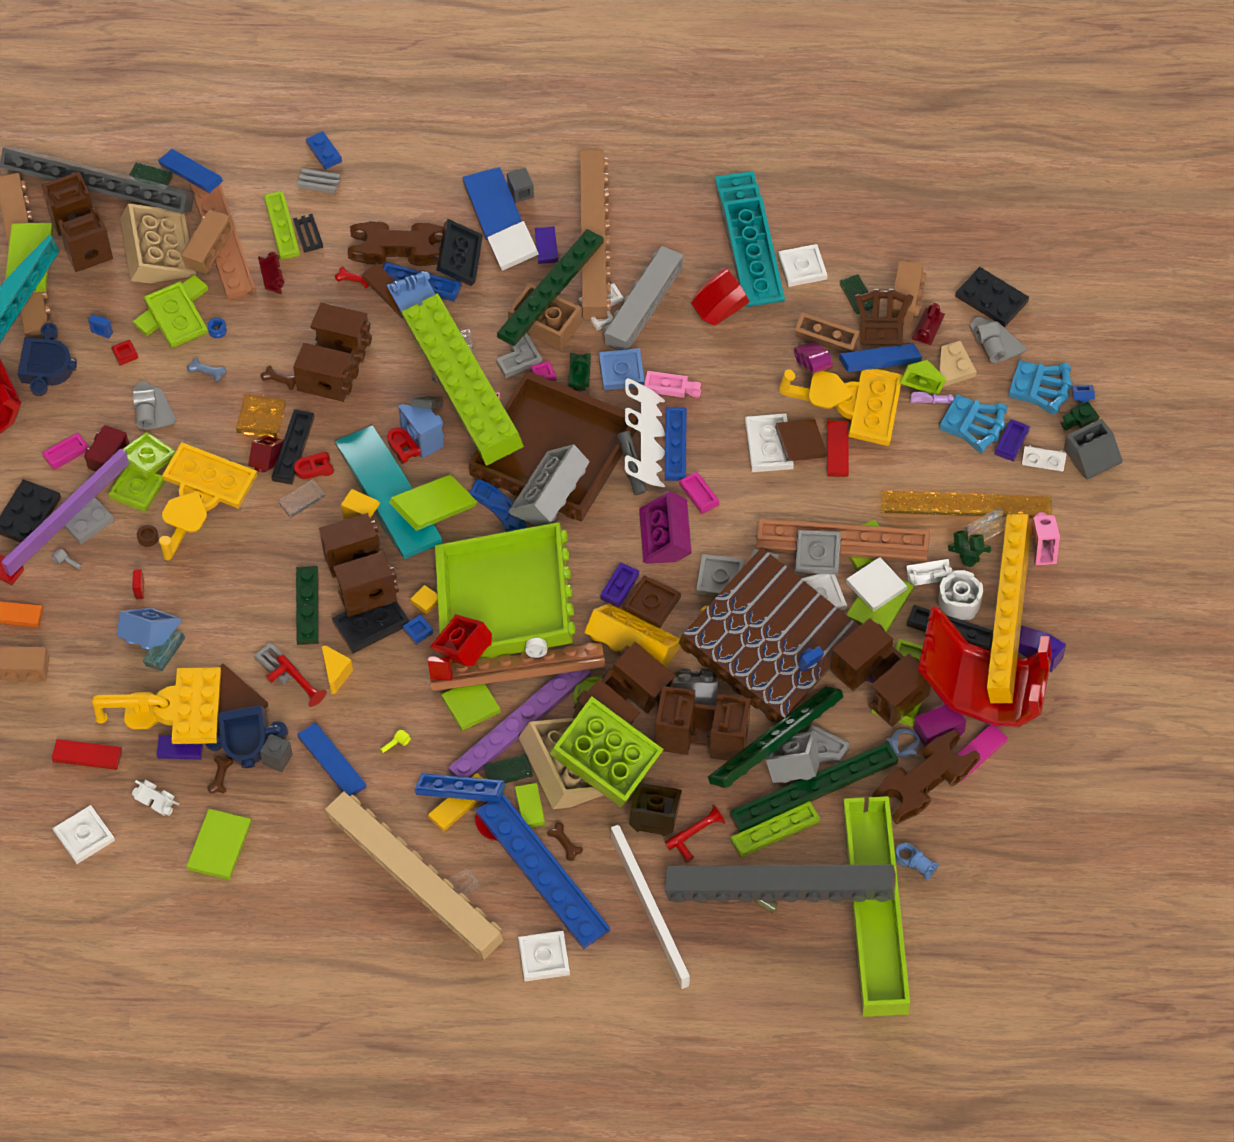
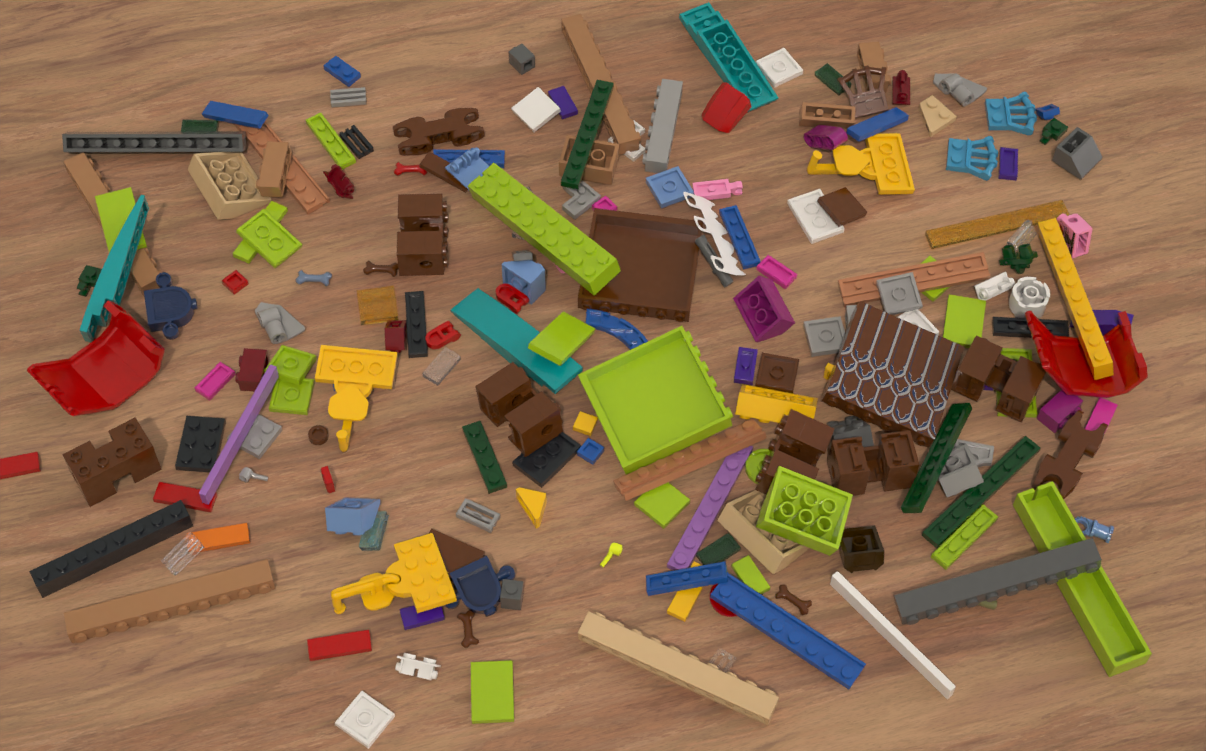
camera: 20 degrees left, 0 degrees up
(77, 221) = (163, 187): reddish brown piece -> none
(100, 326) = (205, 264): blue plate -> none
(217, 333) = (309, 245): blue bush -> none
(286, 666) = (489, 514): red piece -> none
(331, 760) = (561, 587): blue tile -> none
(358, 504) = (498, 358): yellow slope -> none
(440, 668) = (628, 479): red tile -> none
(459, 252) = (495, 125): black plate -> none
(463, 640) = (640, 449): red slope -> none
(491, 201) = (502, 78): blue tile -> none
(536, 647) = (704, 438): white tile -> none
(543, 956) = (819, 706): white tile -> none
(550, 485) = (656, 297): light grey slope -> none
(579, 371) = (636, 197): dark green hips -> none
(677, 840) = (888, 571): red piece -> none
(810, 658) = (937, 382): blue plate -> none
(837, 449) = (874, 206): red tile -> none
(876, 584) = (957, 308): white tile -> none
(907, 751) = (1042, 439): sand blue piece -> none
(923, 377) = (919, 131): lime slope -> none
(923, 397) = (924, 147): lavender piece -> none
(992, 296) = (940, 54): black plate -> none
(1044, 458) = (1041, 171): white hinge -> none

